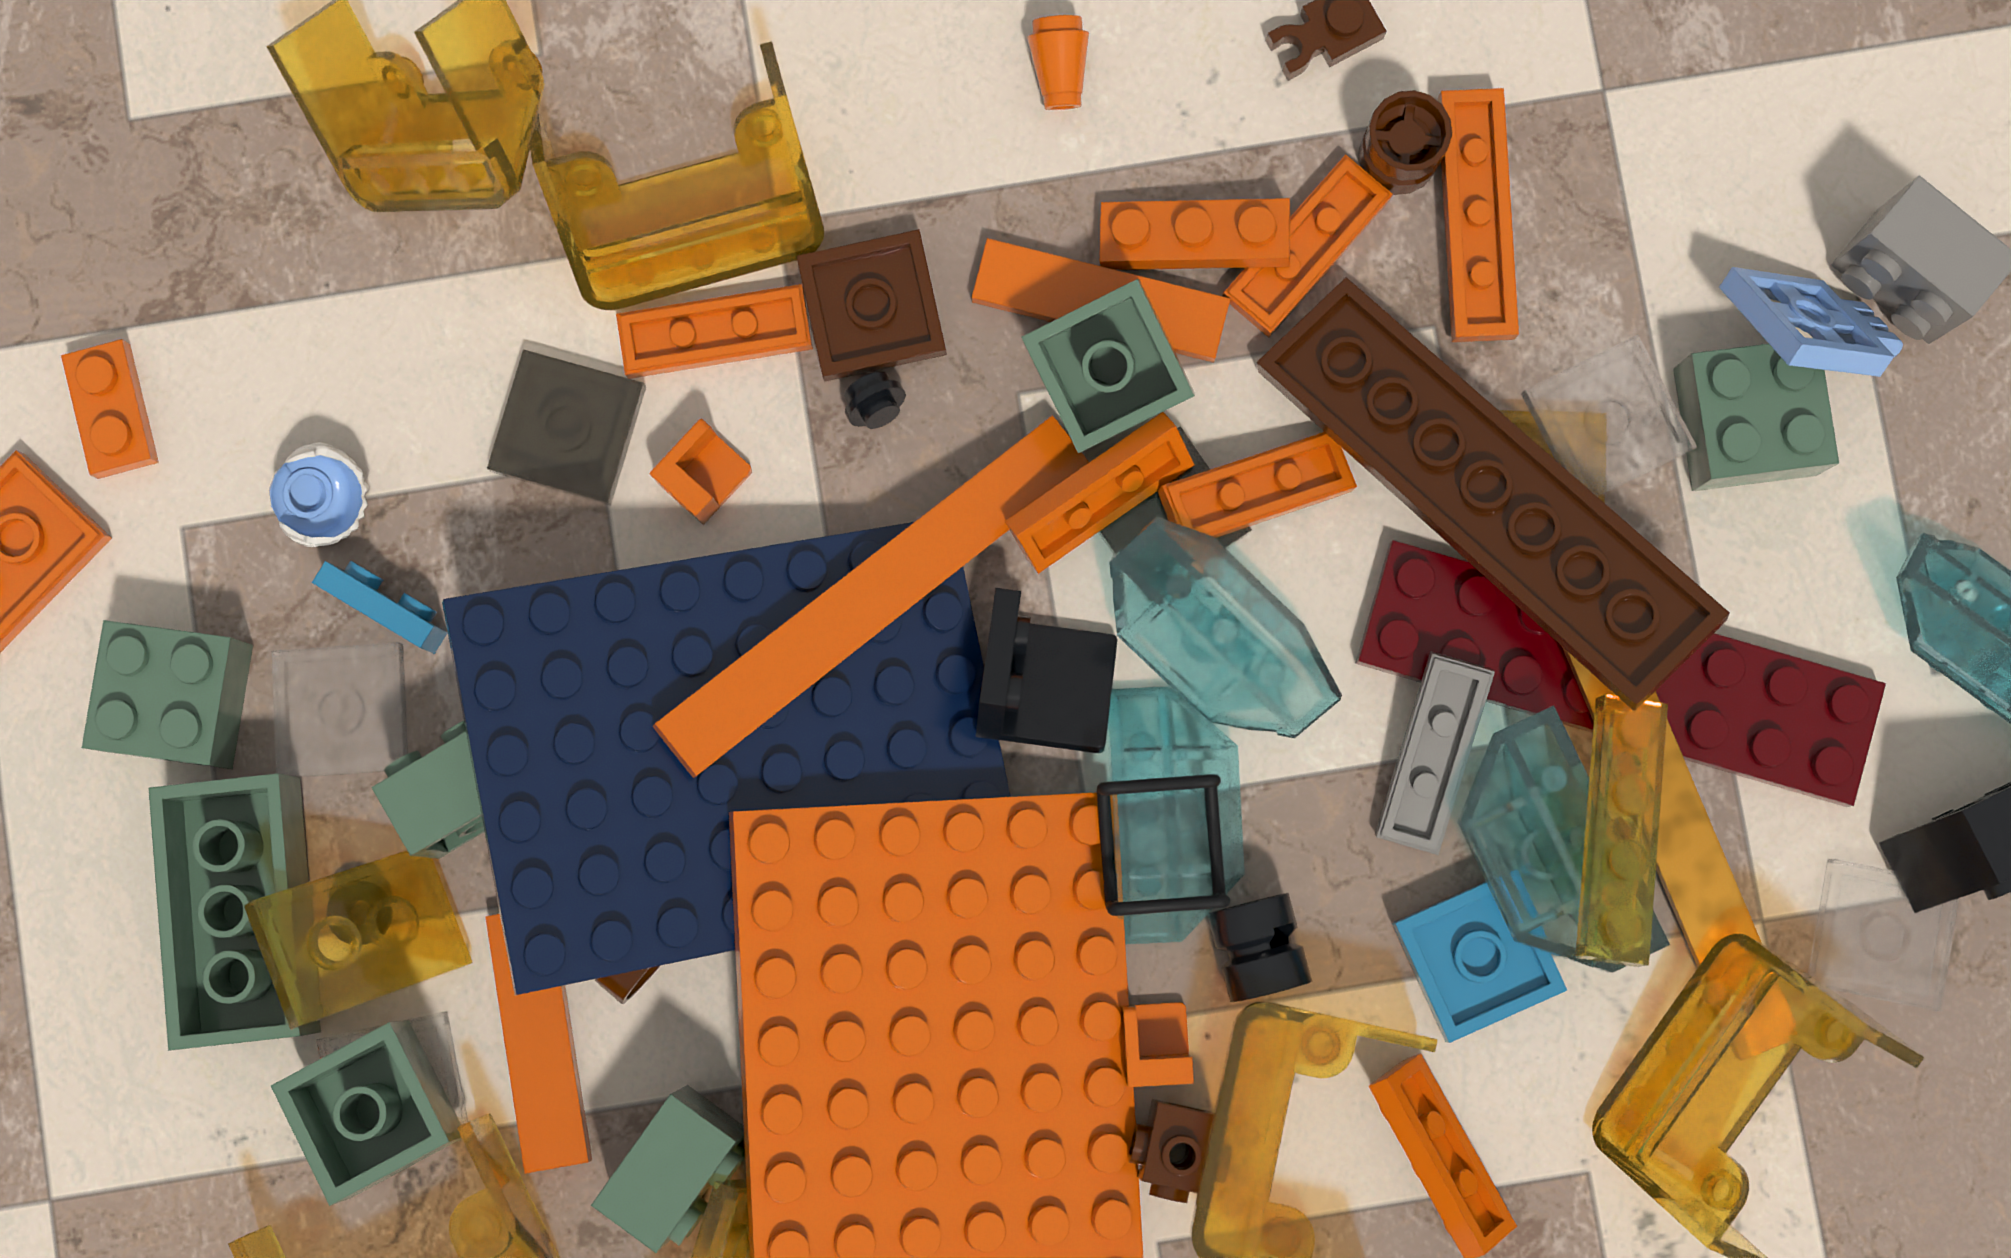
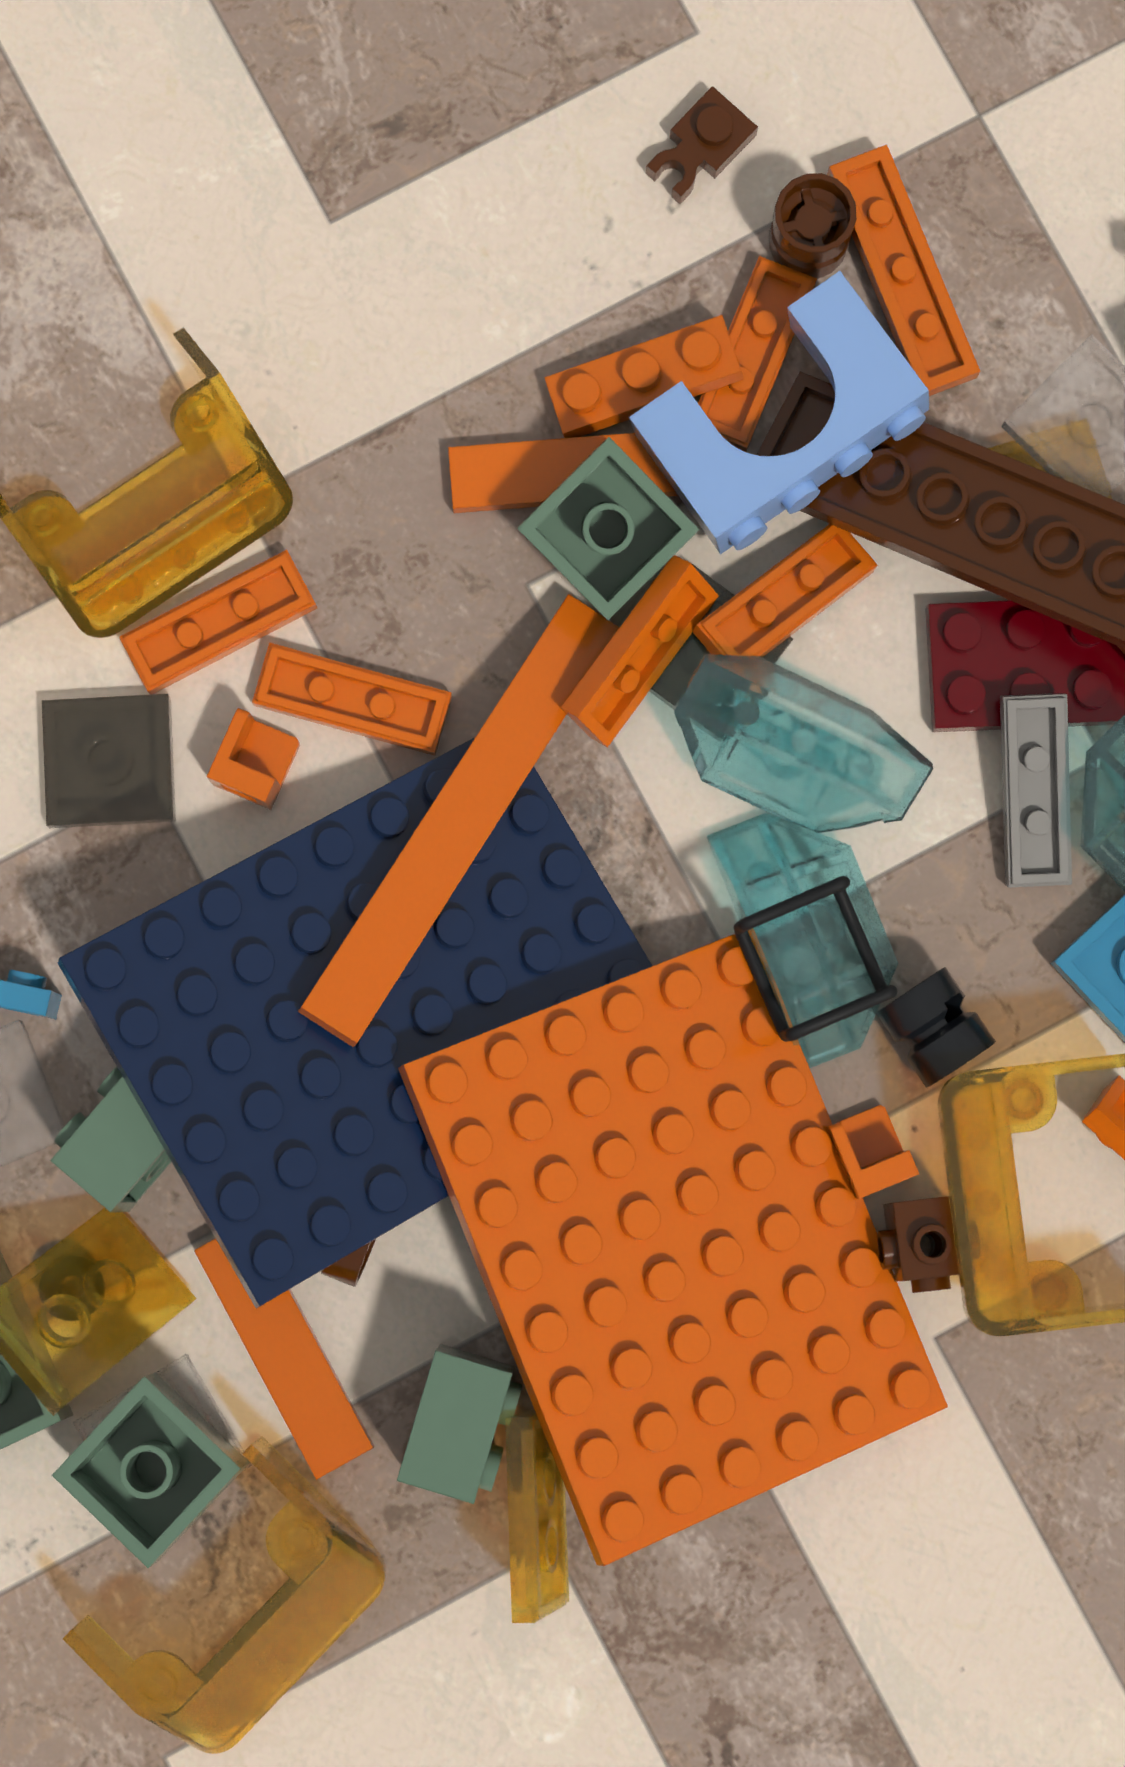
camera: 25 degrees left, 0 degrees up
(815, 446) = (352, 699): none -> orange tile
(871, 305) = (360, 547): reddish brown plate -> none
(873, 400) = (394, 636): black plate -> none
(1044, 681) = (648, 846): black bracket -> none
(1059, 59) = (458, 255): orange cone -> none
(1403, 329) = (741, 491): none -> light blue arch

